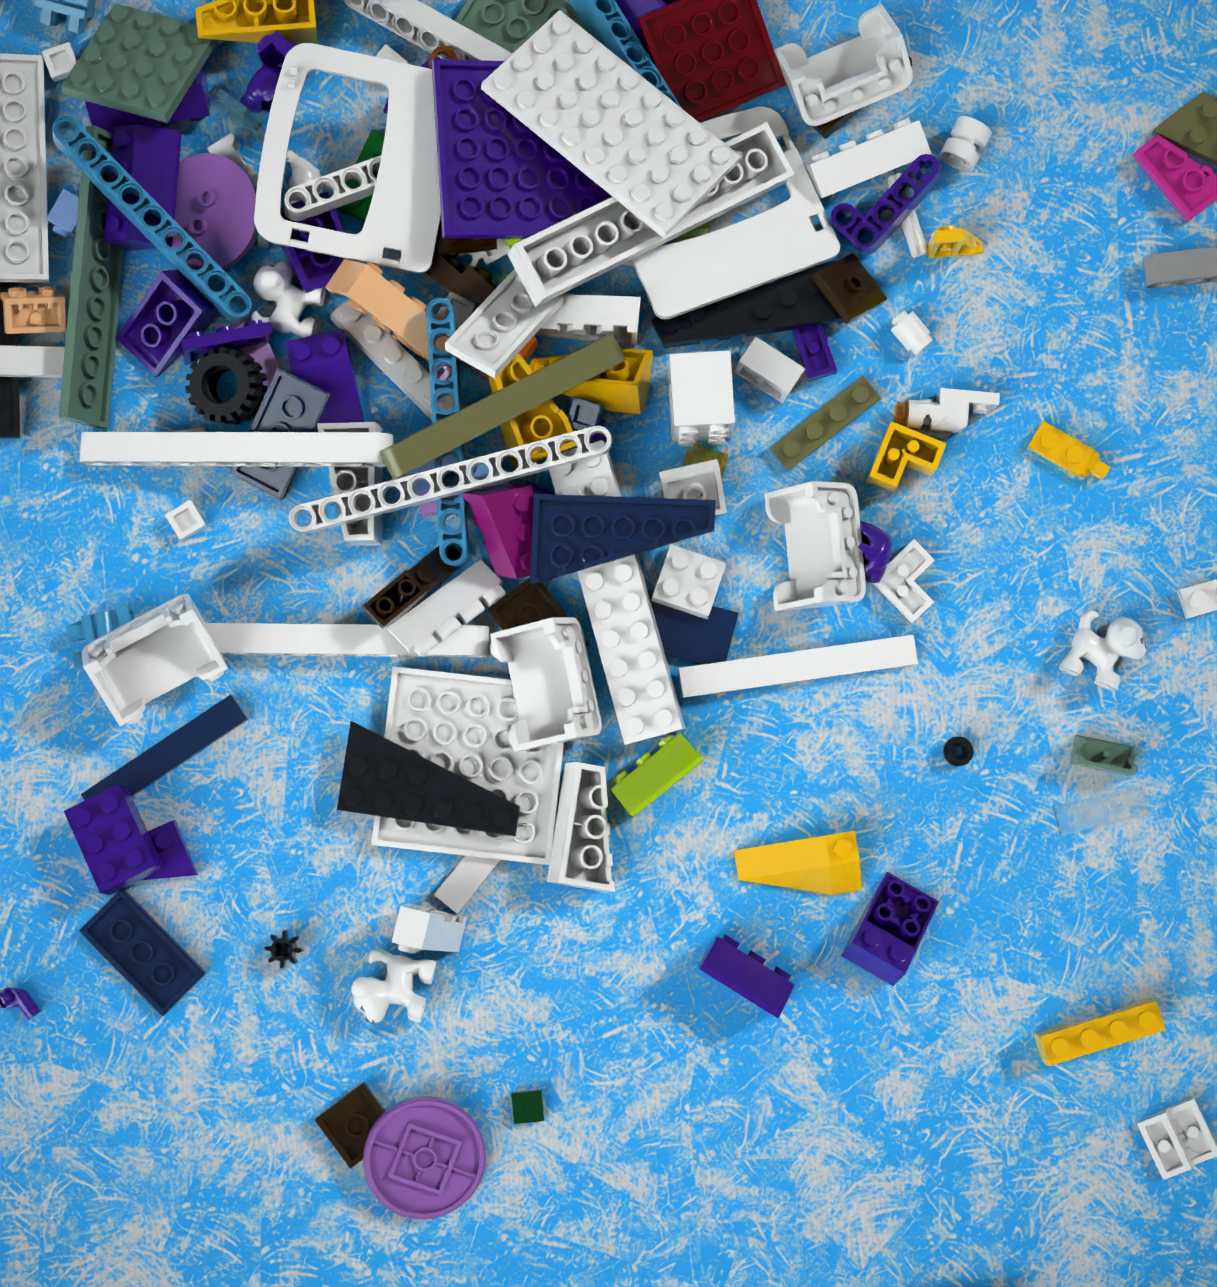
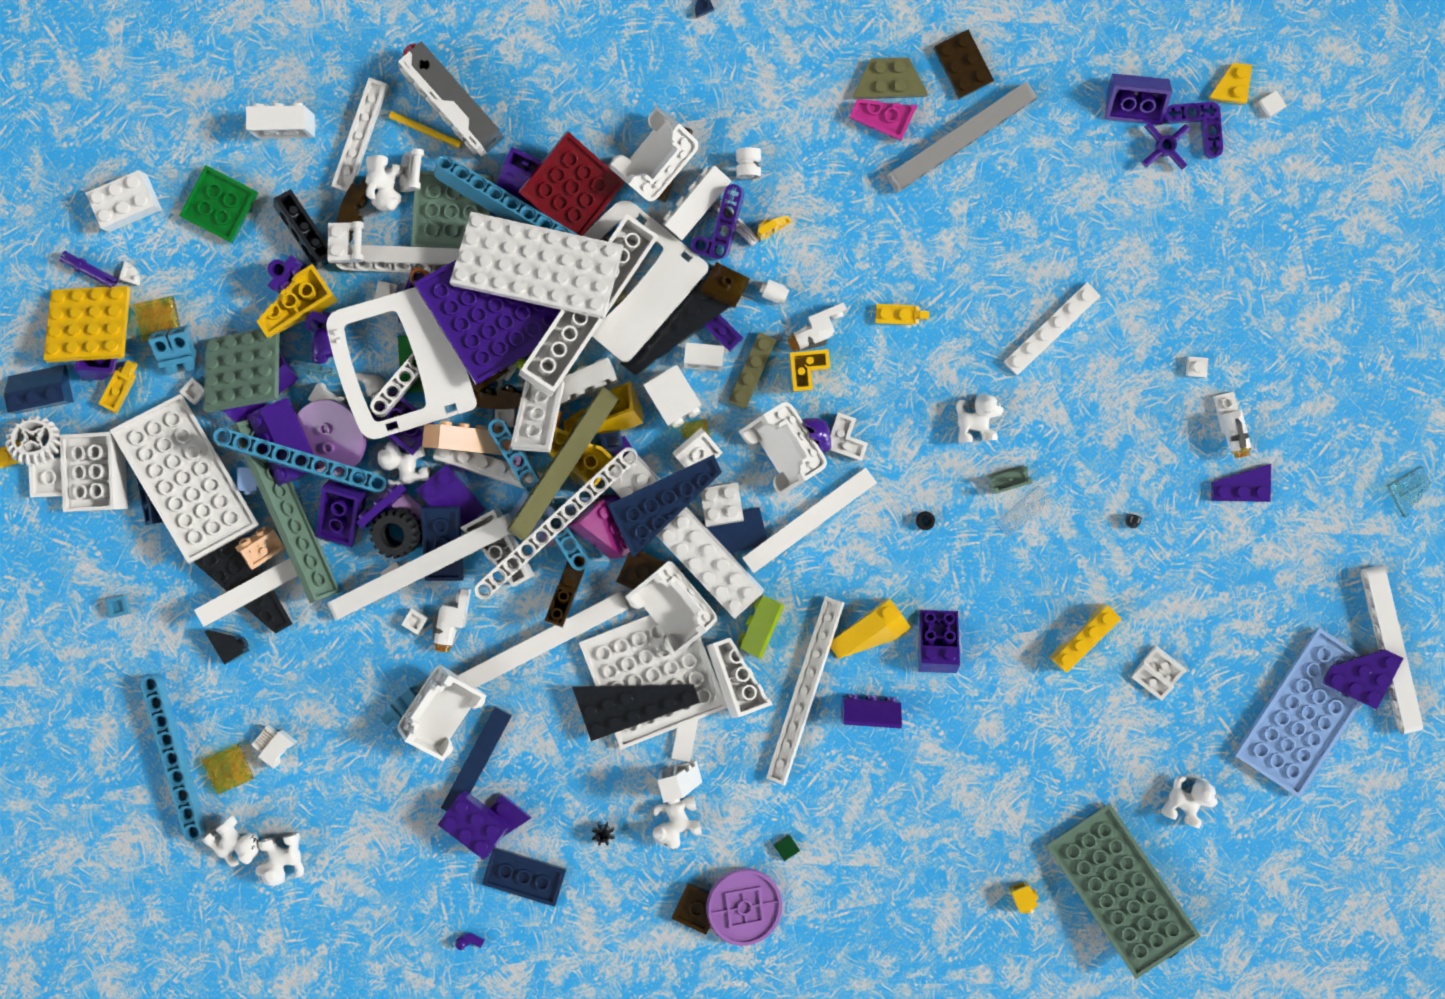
camera: 35 degrees left, 5 degrees up
(234, 540) = (448, 619): none -> white plate
(440, 611) = (589, 596): white windscreen -> none
(668, 899) = (805, 690): none -> white plate

